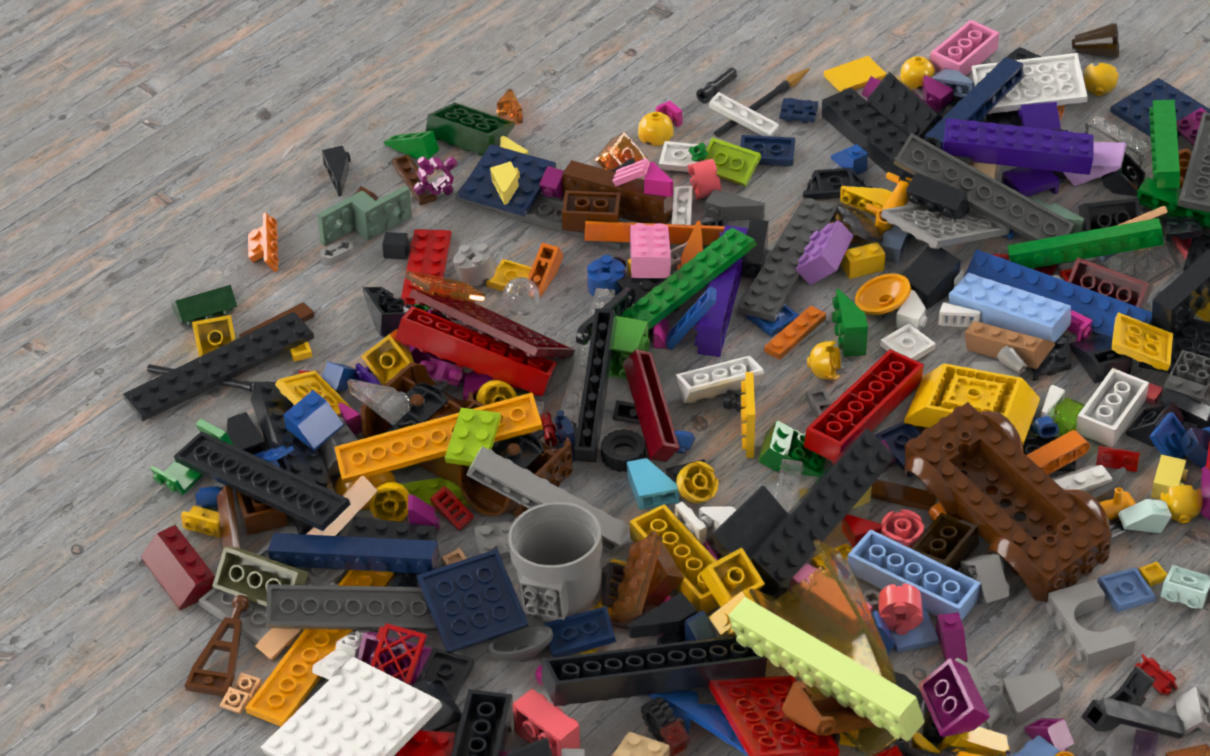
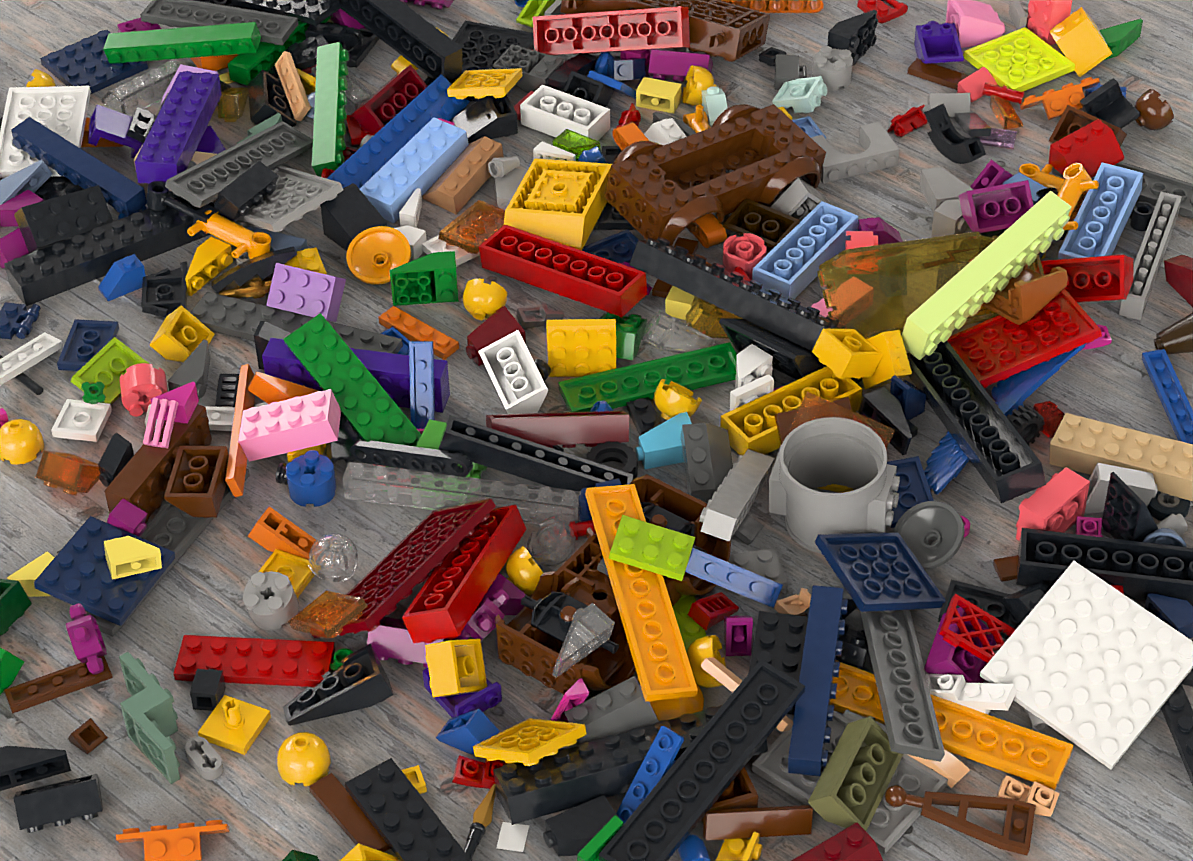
camera: 90 degrees left, 0 degrees up
(246, 406) = (512, 837): none -> white sticker
(304, 188) = (58, 803): none -> black slope
(312, 420) = (597, 721): slope -> none
(328, 297) = (303, 759): none -> yellow cylinder
(367, 264) = (234, 724): none -> yellow tile
(470, 515) = (733, 578): none -> tile
(617, 495) = (705, 458): none -> dark grey slope
(724, 453) = (638, 381): none -> green plate
(777, 195) = (180, 335): none -> yellow slope
(786, 376) = (491, 330): none -> dark red slope
(928, 348) = (473, 226): none -> clear orange plate
(1100, 190) = (232, 103): none -> clear yellow slope

